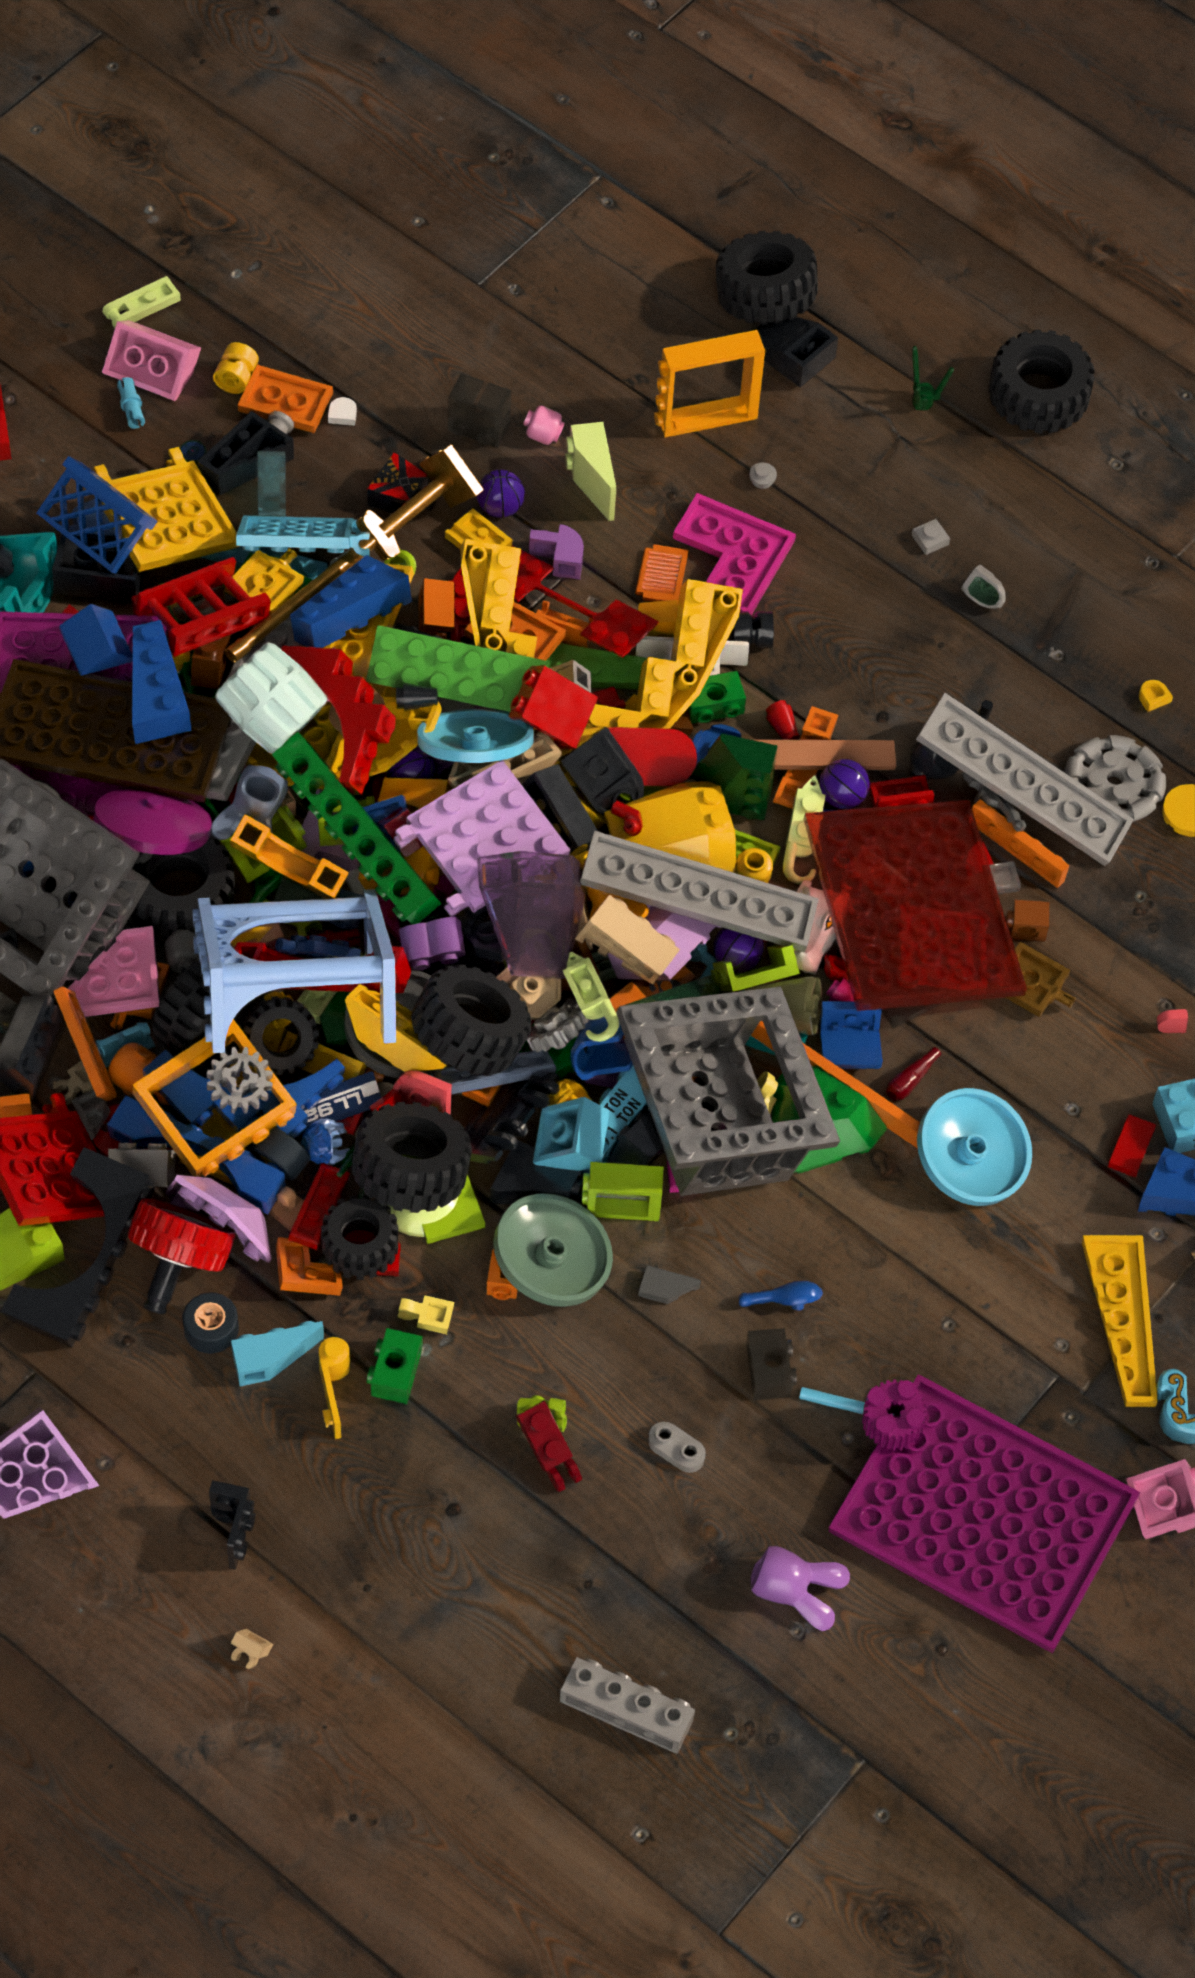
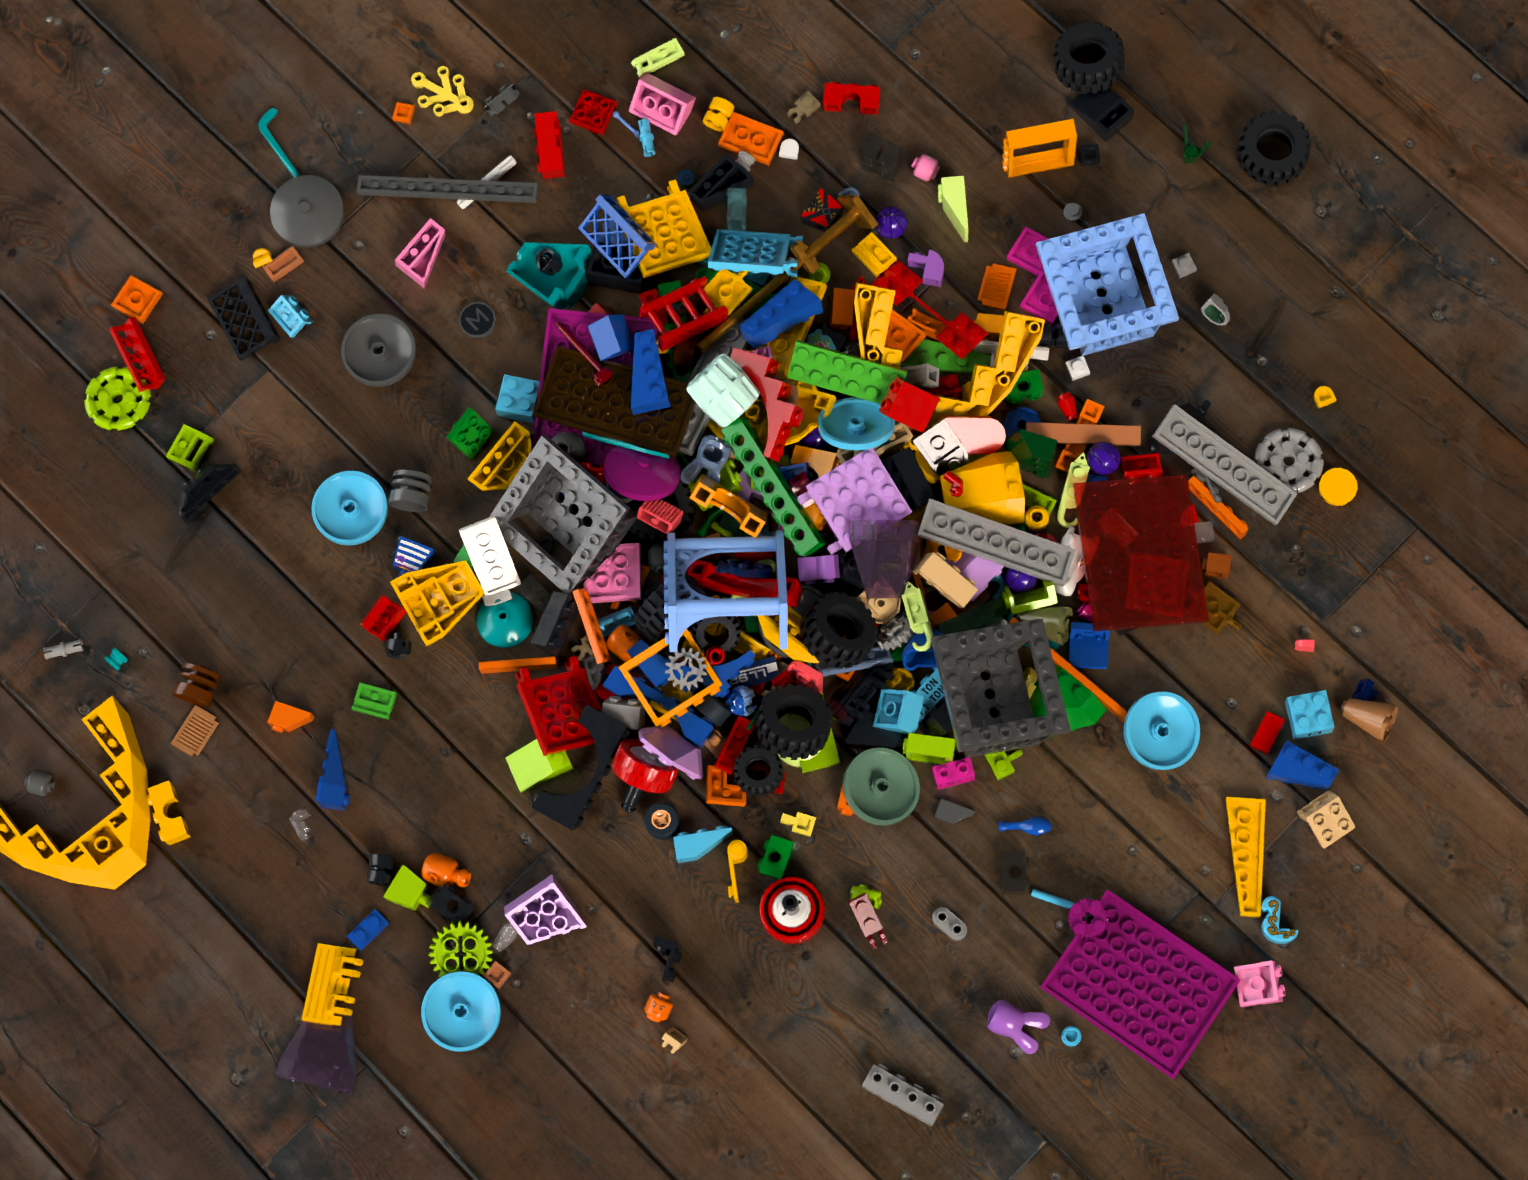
camera: 20 degrees right, 15 degrees up
(49, 375) = (593, 112): none -> red tile
(81, 783) = (625, 445): none -> teal piece
(83, 377) = (615, 114): none -> medium blue hinge
(85, 689) = (602, 374): none -> dark red piece
(183, 877) = (660, 515): none -> coral brick
(222, 1598) = (658, 1007): none -> orange head
(288, 1066) = (720, 655): none -> red plate
(354, 884) = (773, 525): none -> dark brown arm
(360, 356) = (805, 105): none -> dark tan plate
(411, 337) = (836, 94): none -> red arch
(415, 696) = (819, 392): black cone -> none
(427, 1439) = (792, 910): none -> red wheel
(662, 1226) = (953, 773): none -> dark pink brick
(731, 1209) = (1001, 764): none -> lime hinge
(779, 402) = (1089, 154): none -> black plate
(791, 673) = (1077, 368): none -> white plate
(810, 511) = (1102, 248): none -> light blue plate
(885, 1599) = (1071, 1036): none -> medium azure plate
(908, 1079) = (1120, 680): dark red piece -> none

